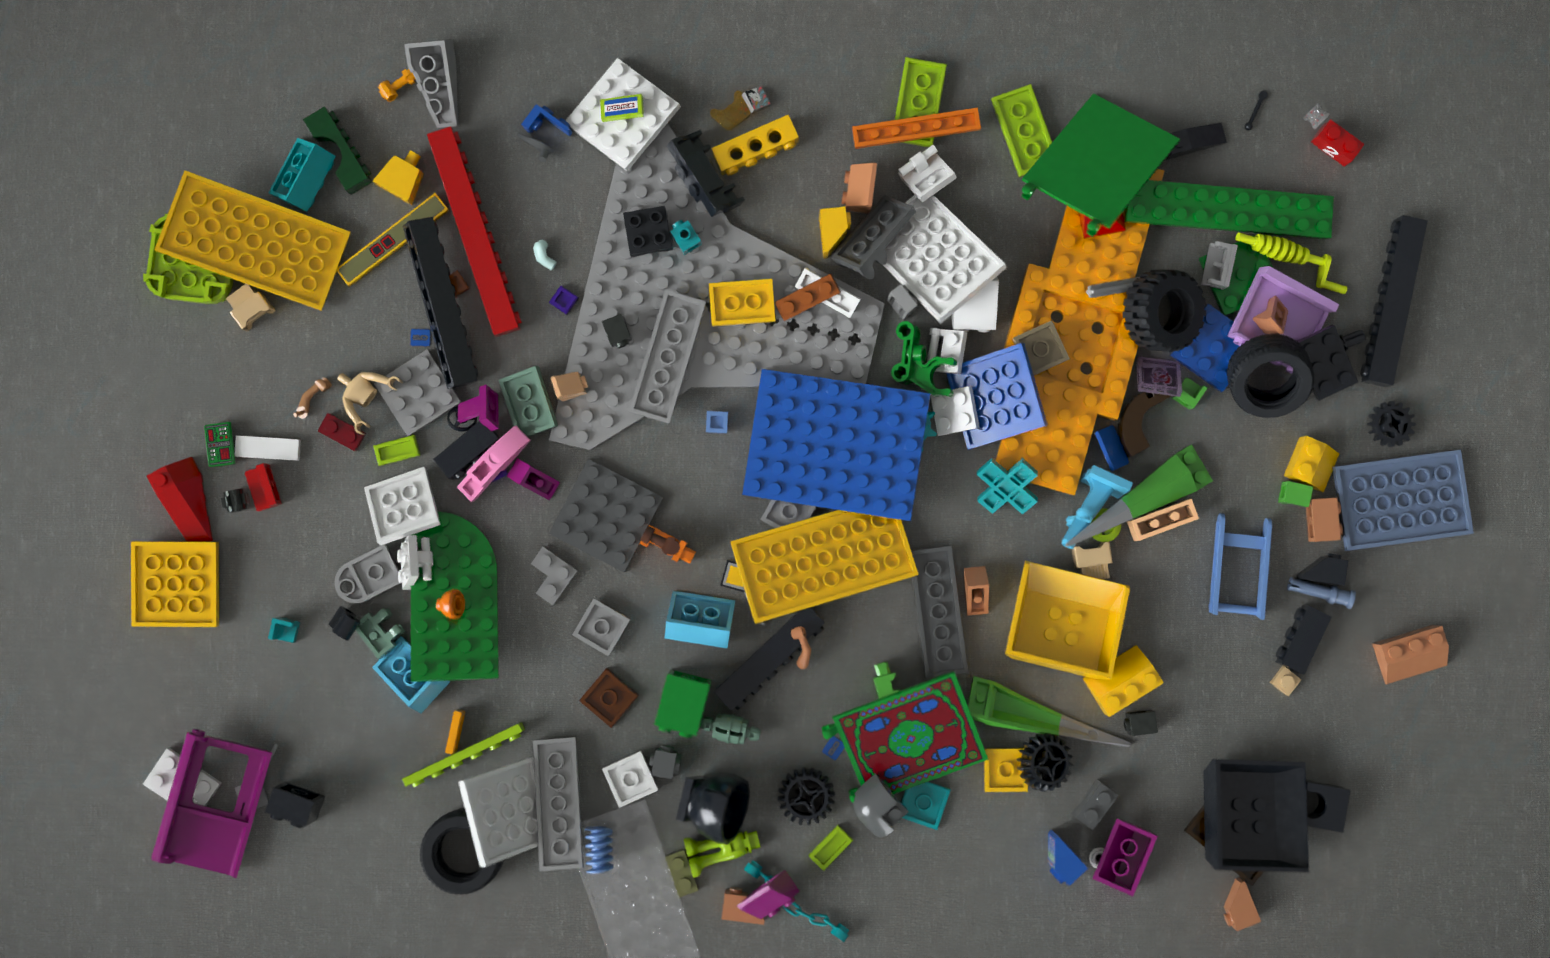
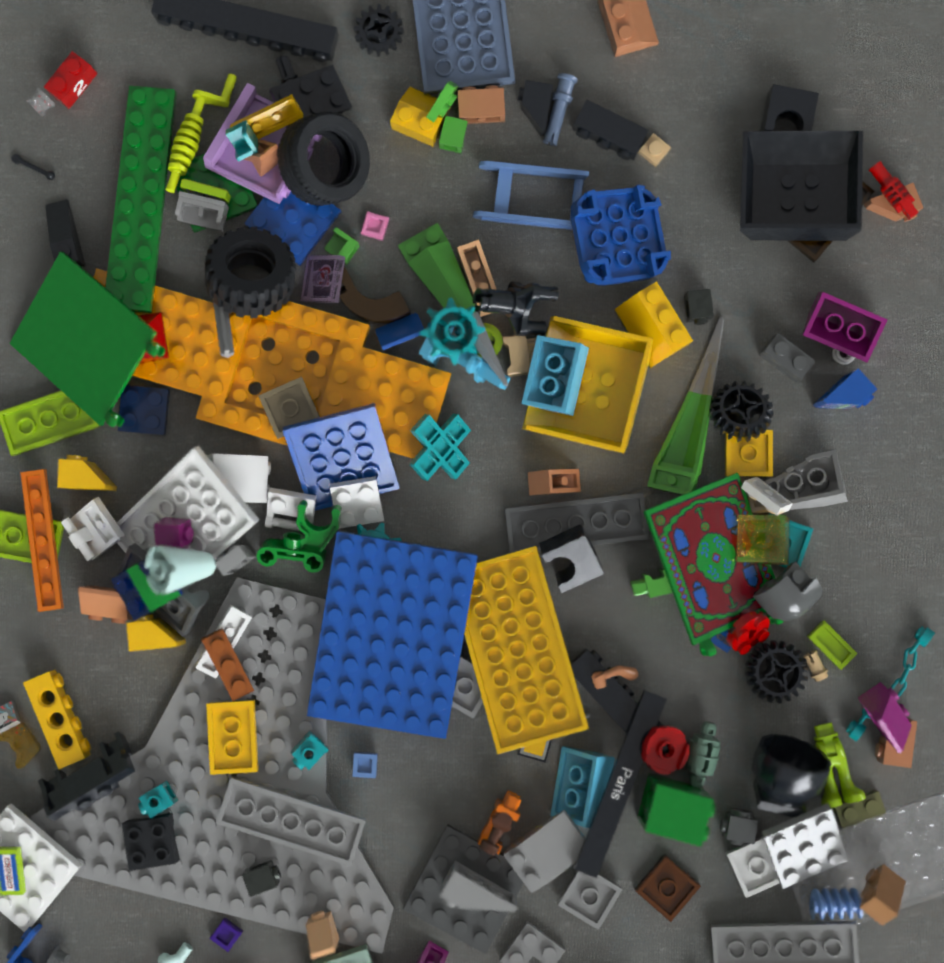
camera: 90 degrees left, 0 degrees up
(609, 519) = (473, 891): none -> light grey slope
(609, 891) = (882, 894): none -> medium nougat brick
(643, 587) = (545, 851): none -> light grey slope
(651, 821) = (805, 846): none -> plate
(705, 652) = (619, 785): none -> black tile
(738, 371) = (308, 742): none -> teal brick
(741, 682) = (653, 747): none -> red plate
(811, 832) = (816, 667): none -> tan pin
(842, 769) = (749, 631): none -> red plate
(878, 224) = (137, 594): none -> slope
(897, 250) = (176, 567): none -> light aqua cone
(918, 612) = (578, 548): none -> piece
(920, 245) = (173, 532): none -> magenta slope
(927, 782) = (763, 539): none -> clear yellow slope
(971, 780) = (766, 495): none -> white plate
(975, 161) = (82, 475): none -> yellow slope
(977, 825) = (809, 484): none -> light grey wedge
(1034, 216) = (144, 410): none -> dark blue plate
(1075, 590) = (555, 375): none -> medium azure slope
(1115, 507) = (465, 331): none -> teal brick
(1139, 553) = (516, 305): none -> black wheel
(1205, 648) = (619, 235): none -> blue plate
(1208, 423) = (375, 226): none -> bright pink tile
(1238, 268) = (205, 190): none -> lime tile
(1253, 902) = (894, 191): none -> red hinge
(1286, 301) = (243, 140): none -> teal panel
(1304, 323) = (273, 117): none -> yellow plate
(1326, 485) = (444, 101): none -> bright green wing

